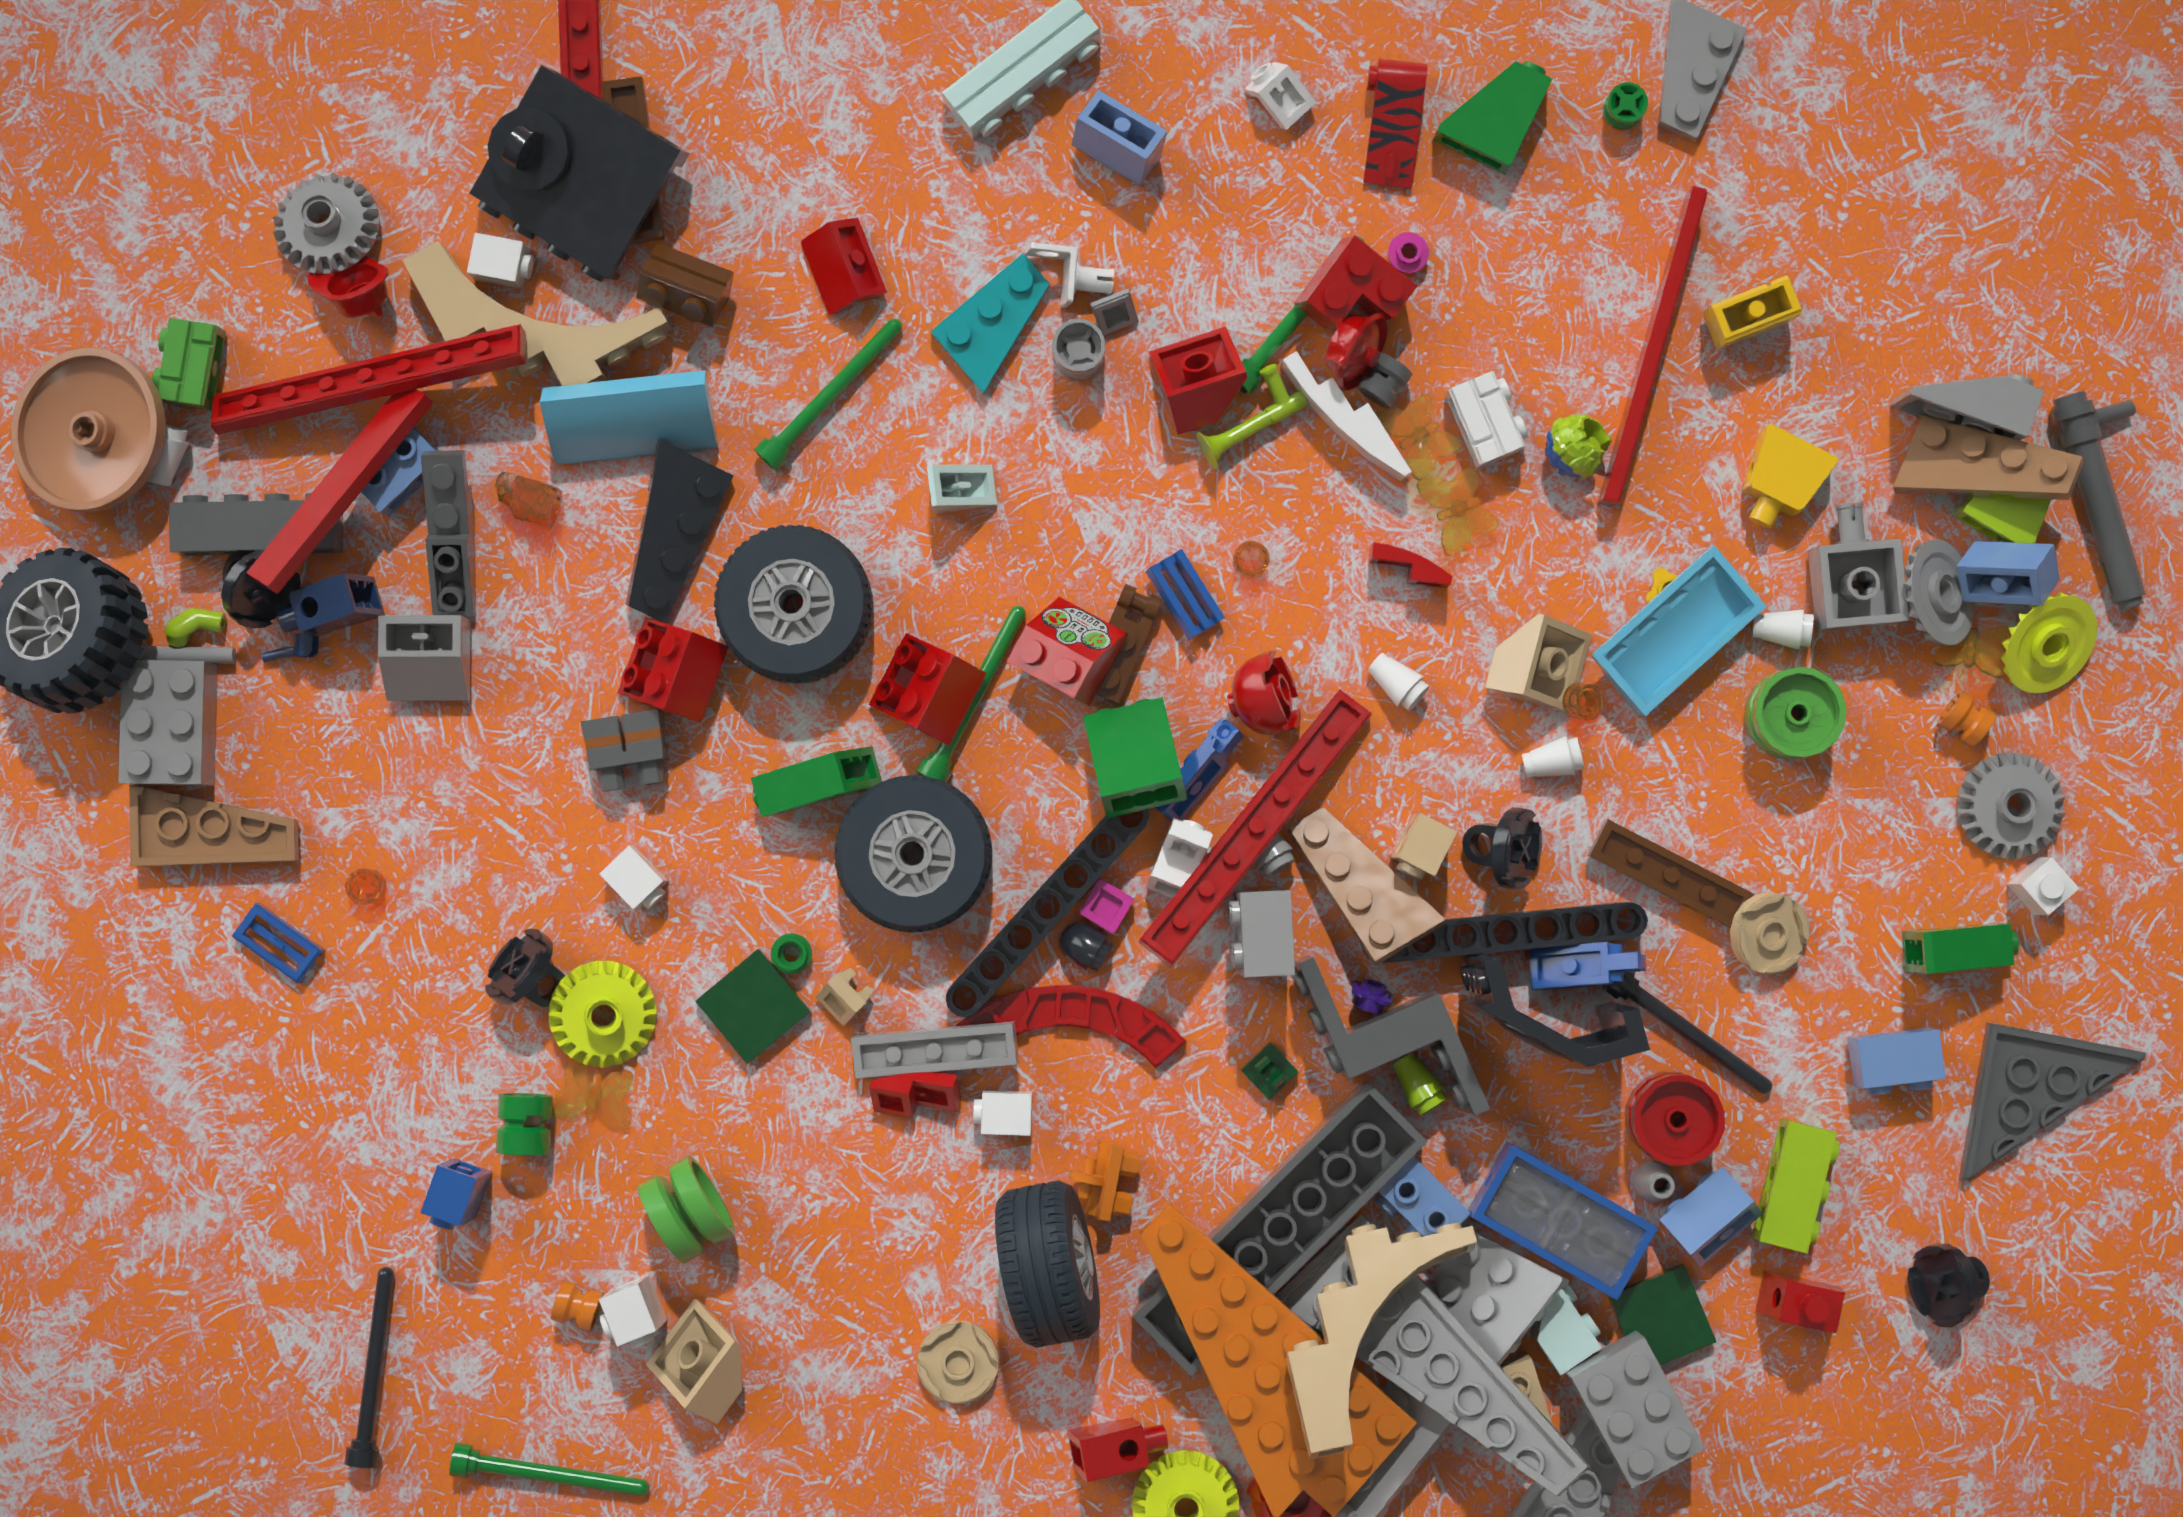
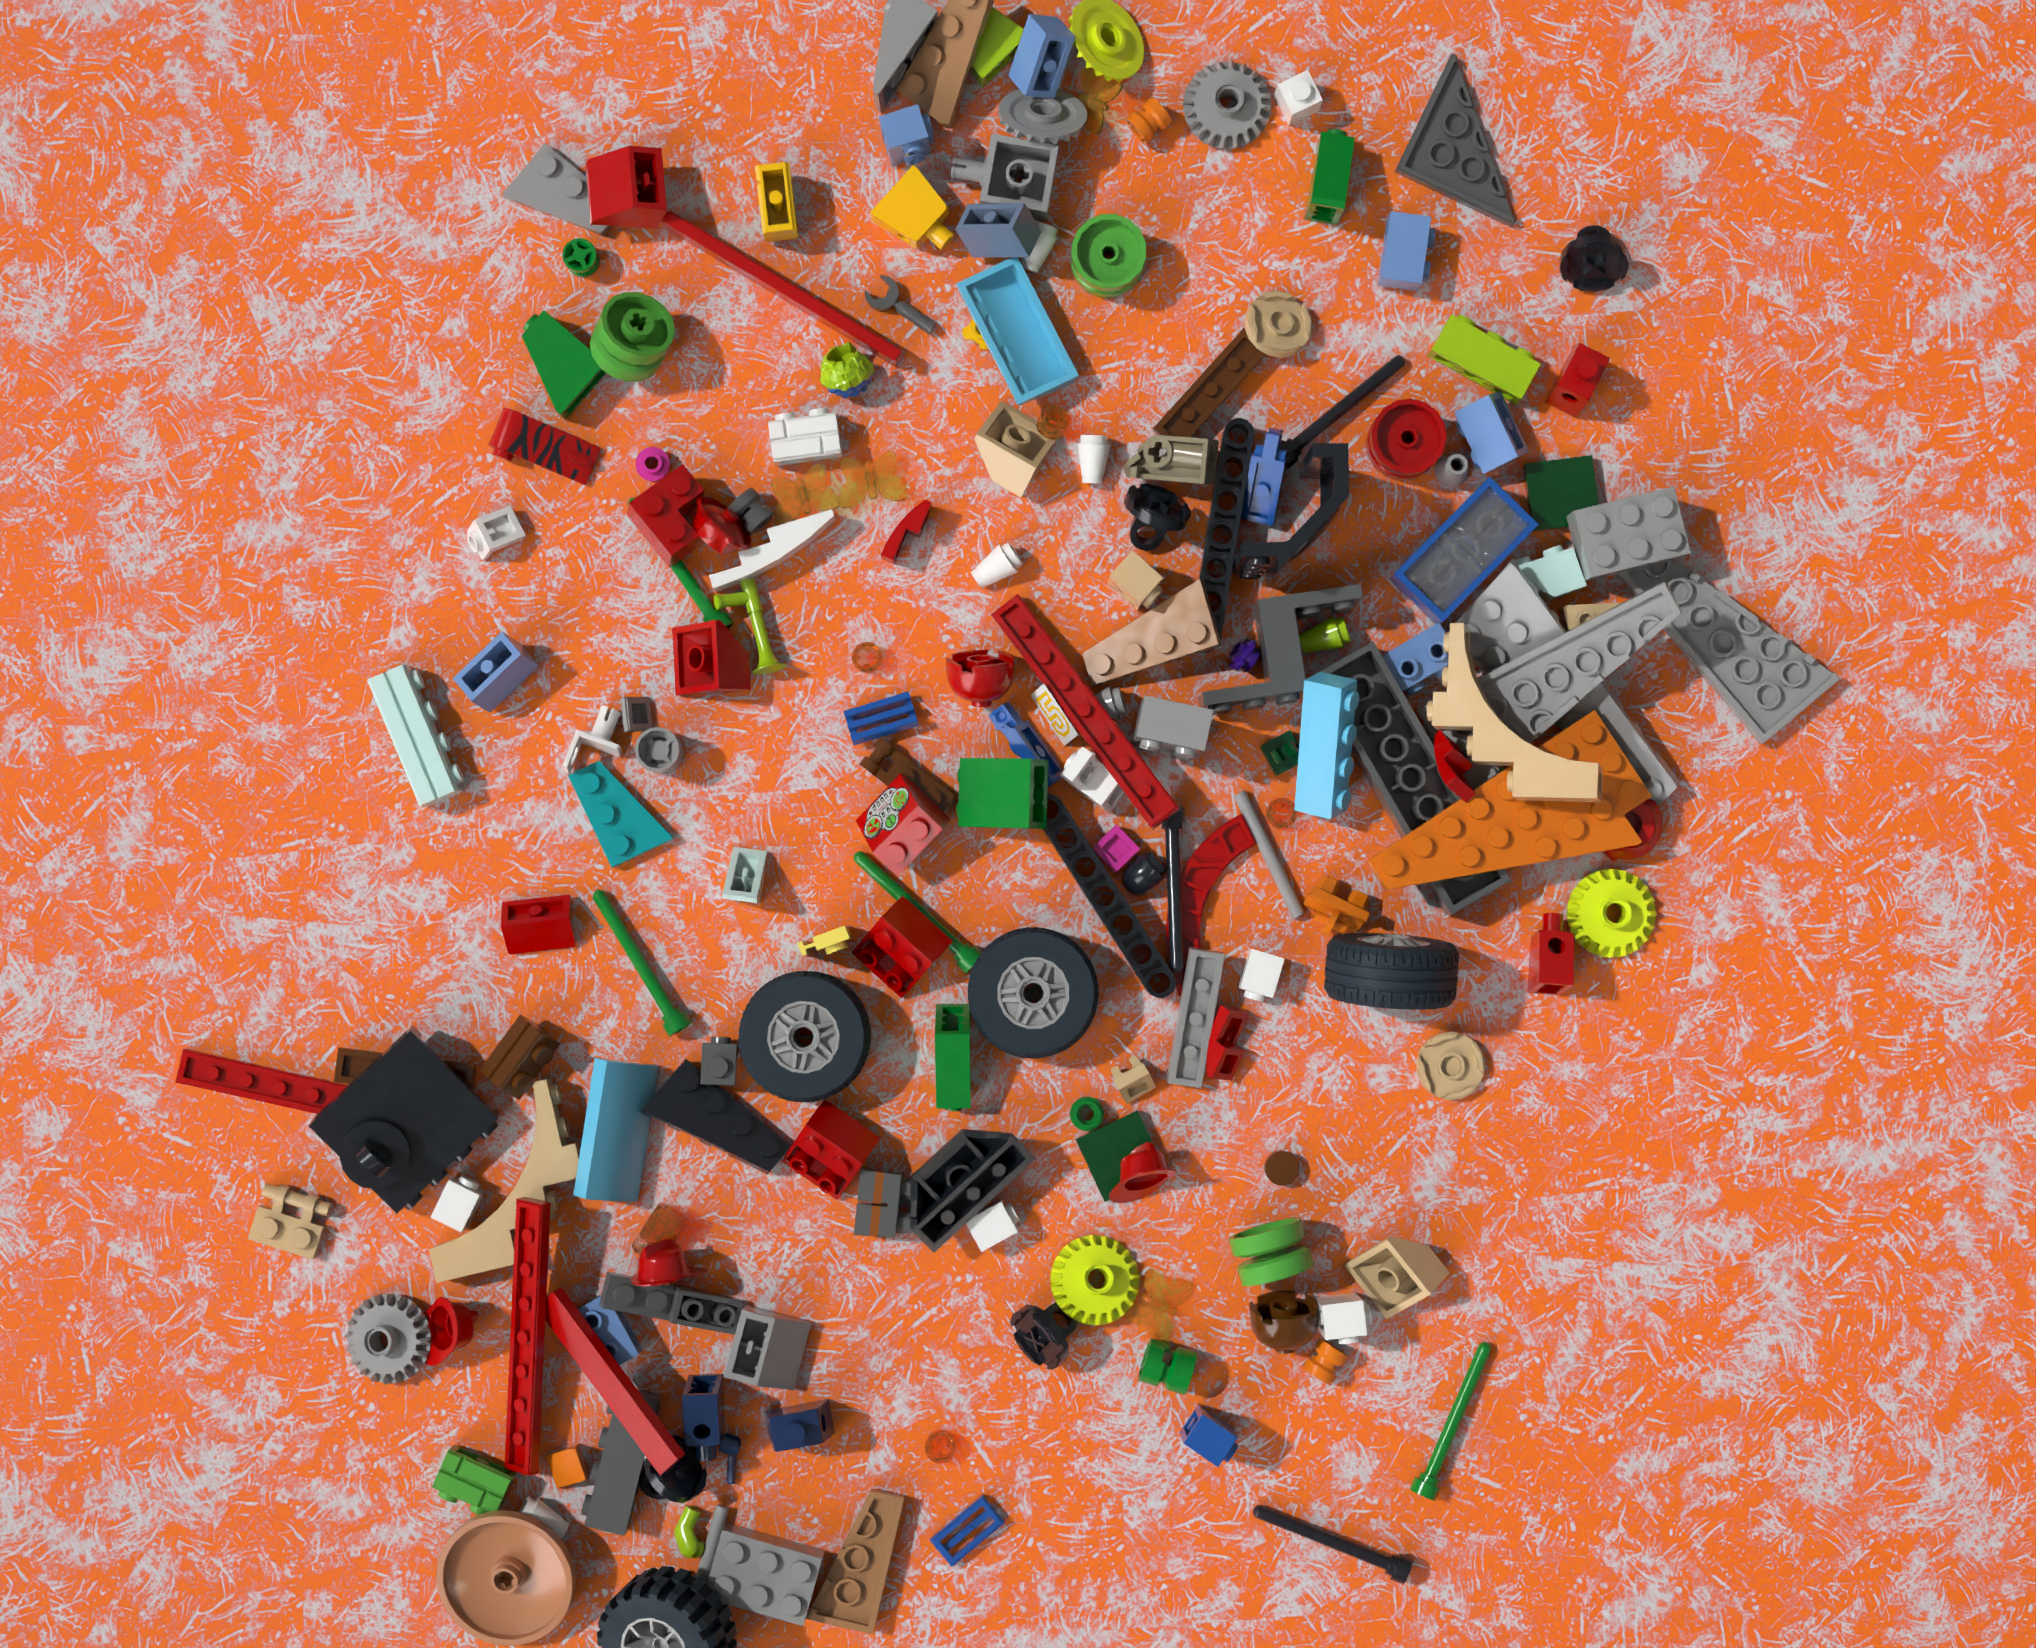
camera: 80 degrees left, 0 degrees up
(234, 467) = (567, 1466): none -> orange slope
(347, 718) = (799, 1425): none -> dark blue torso
(419, 76) = (285, 1230): none -> tan plate
(489, 512) = (663, 1264): none -> red piece
(612, 1245) = (1283, 1320): none -> reddish brown cylinder
(673, 830) = (962, 1181): none -> black wedge
(737, 1034) = (1141, 1174): none -> red piece
(738, 514) = (719, 1062): none -> dark grey bracket
(788, 1196) = (1281, 1168): none -> reddish brown tile
(910, 603) = (830, 941): none -> light yellow plate
(1045, 995) = (1171, 829): none -> black piece
(1147, 1086) = (1269, 854): none -> light grey bar
(1200, 1100) = (1270, 811): none -> clear orange bush
(1242, 793) = (1054, 714): none -> white sticker
(1291, 1118) = (1326, 745): none -> medium azure brick
(1306, 1272) = (1452, 765): none -> red slope
(1549, 187) = (632, 336): none -> bright green wheel
(1578, 868) = (1186, 460): none -> dark tan piece
(1668, 492) = (902, 307): none -> dark grey piece
(1720, 135) = (627, 187): none -> red slope
(1789, 577) = (998, 230): none -> sand blue brick
(1871, 441) = (906, 135): none -> medium blue brick

